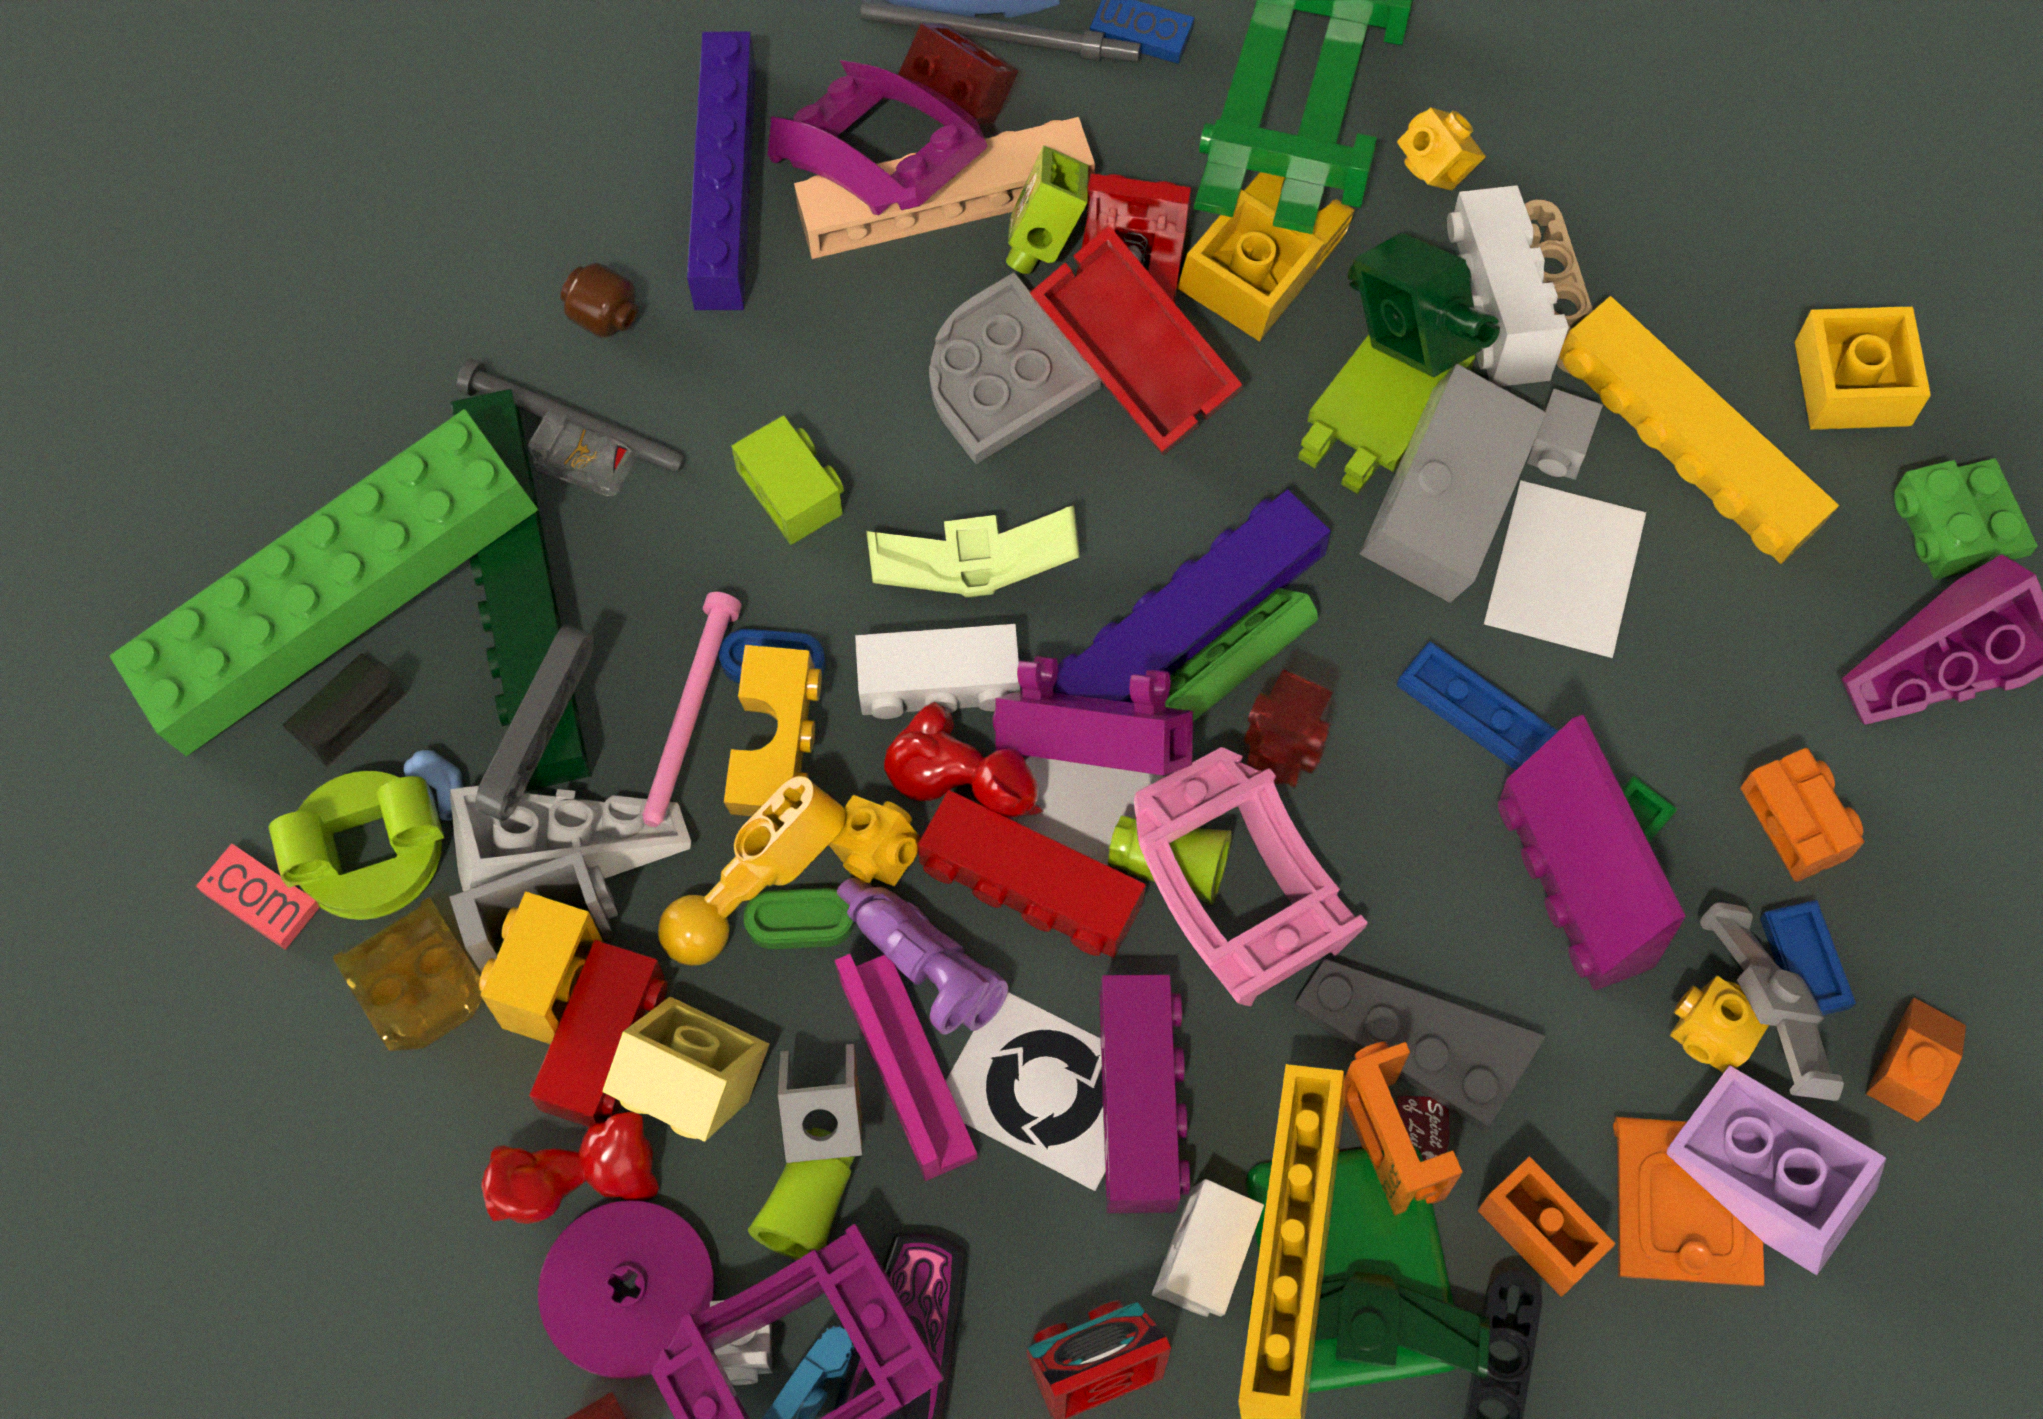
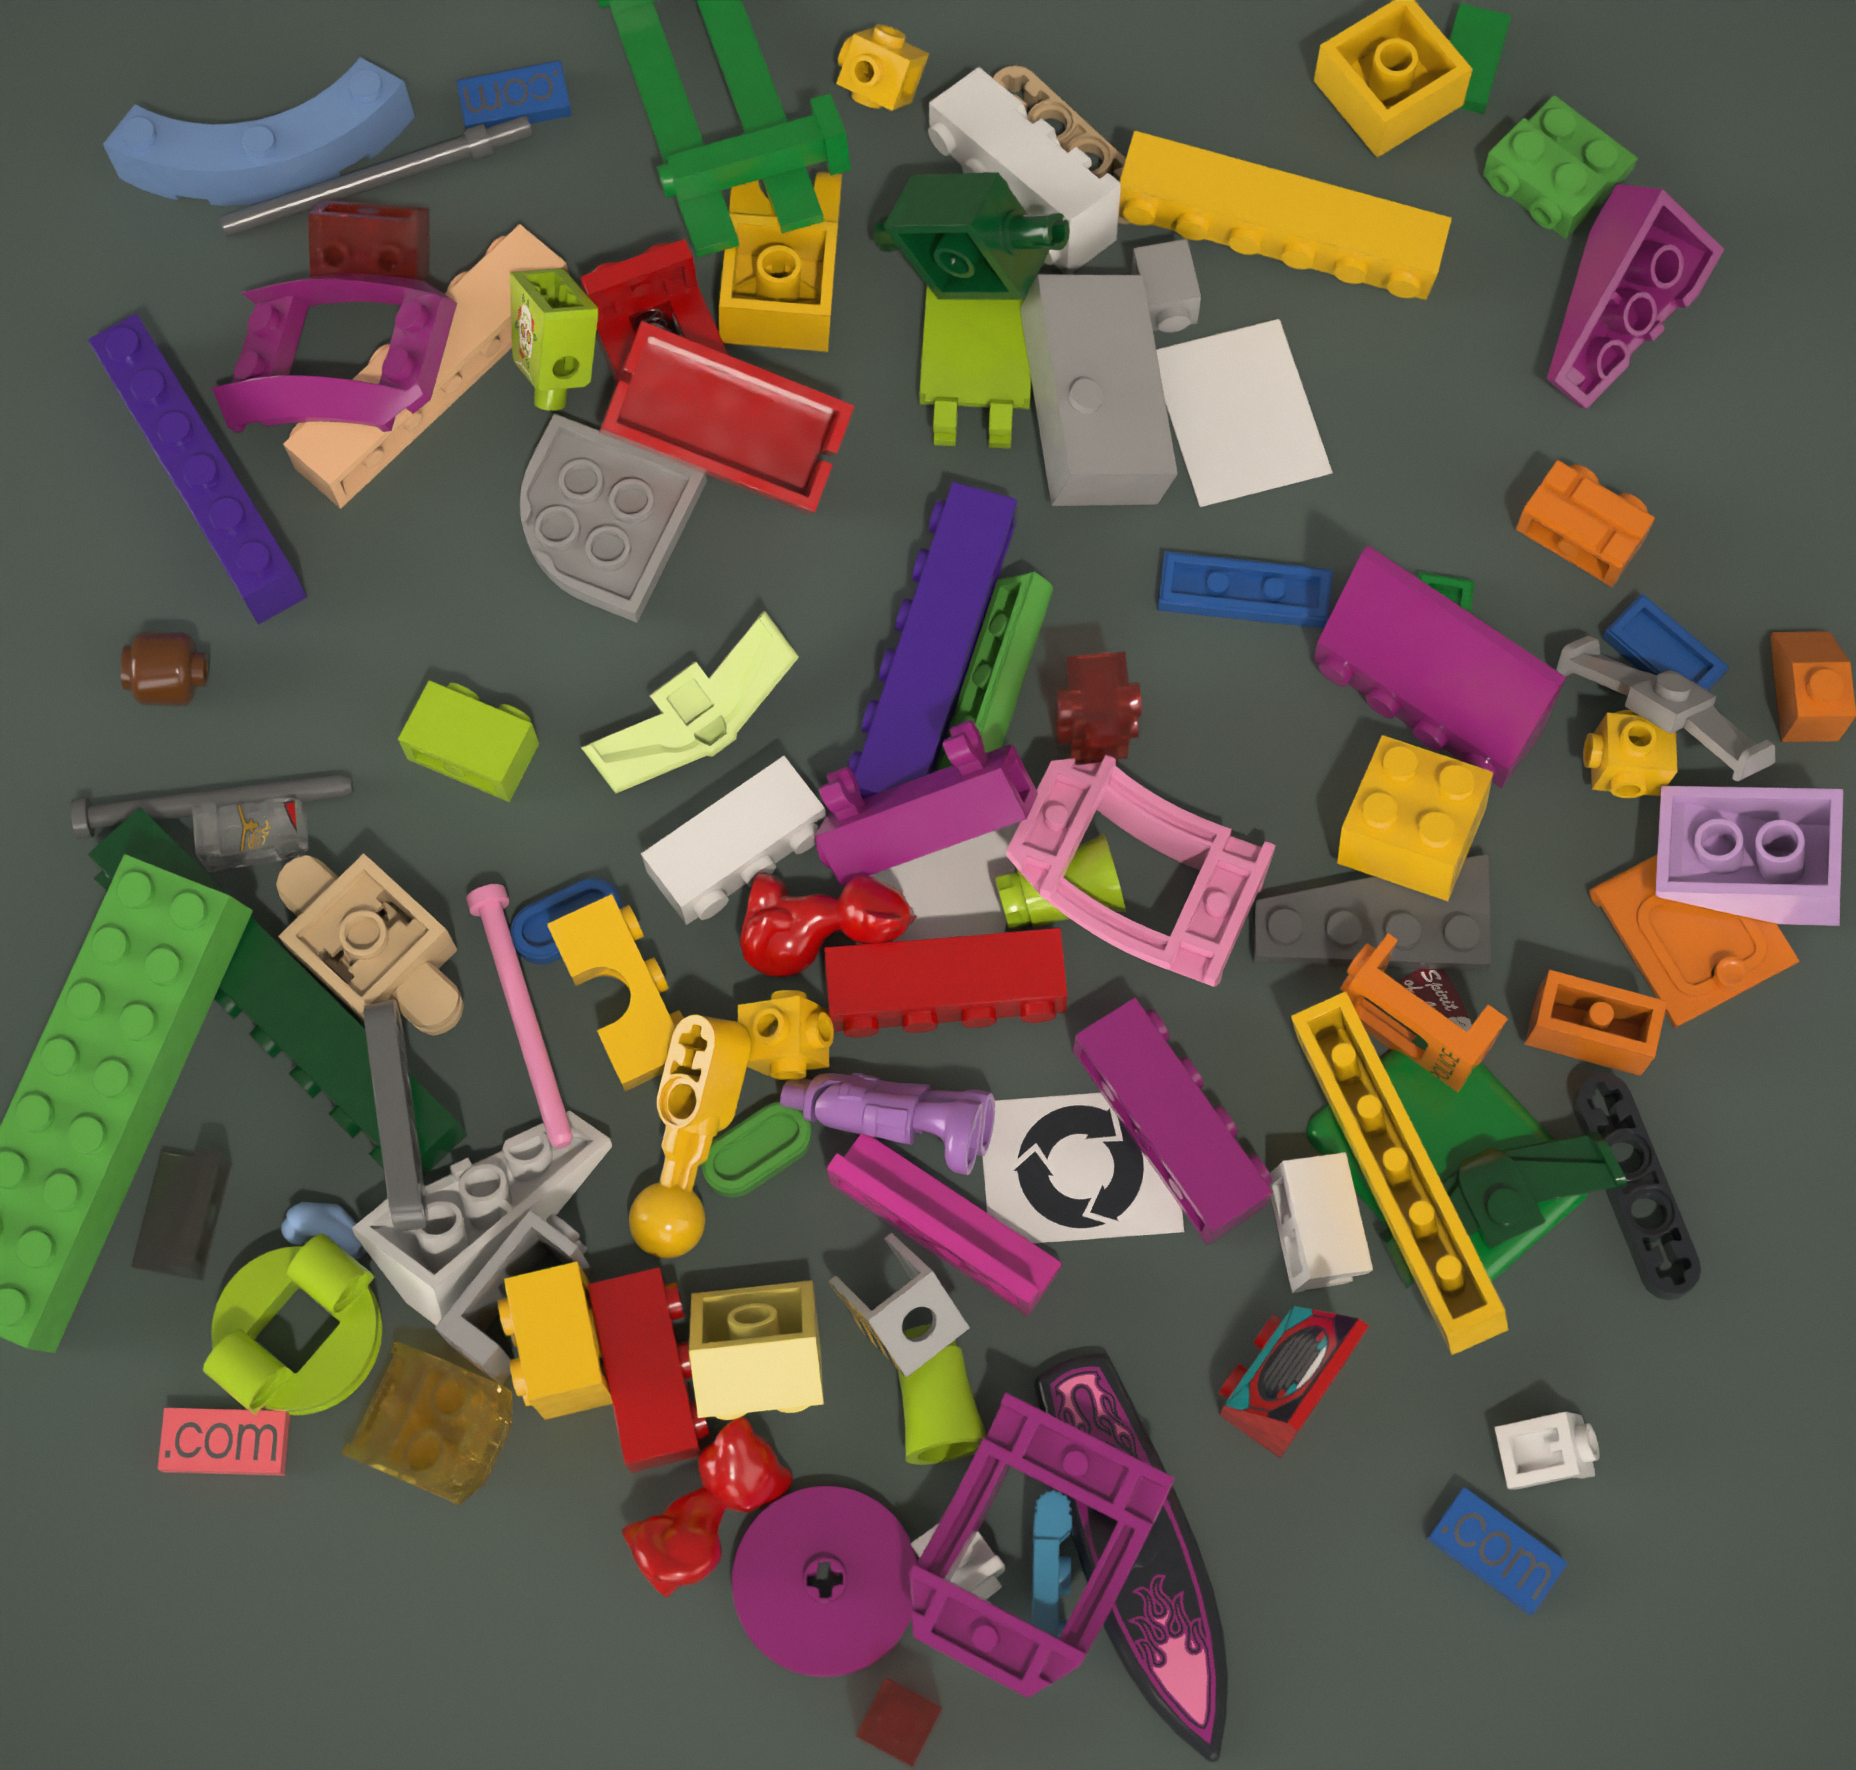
camera: 30 degrees left, 5 degrees up
(610, 585) = (369, 941): none -> tan brick
(1497, 967) = (1414, 817): none -> yellow brick
(1953, 387) = (1479, 39): none -> green tile

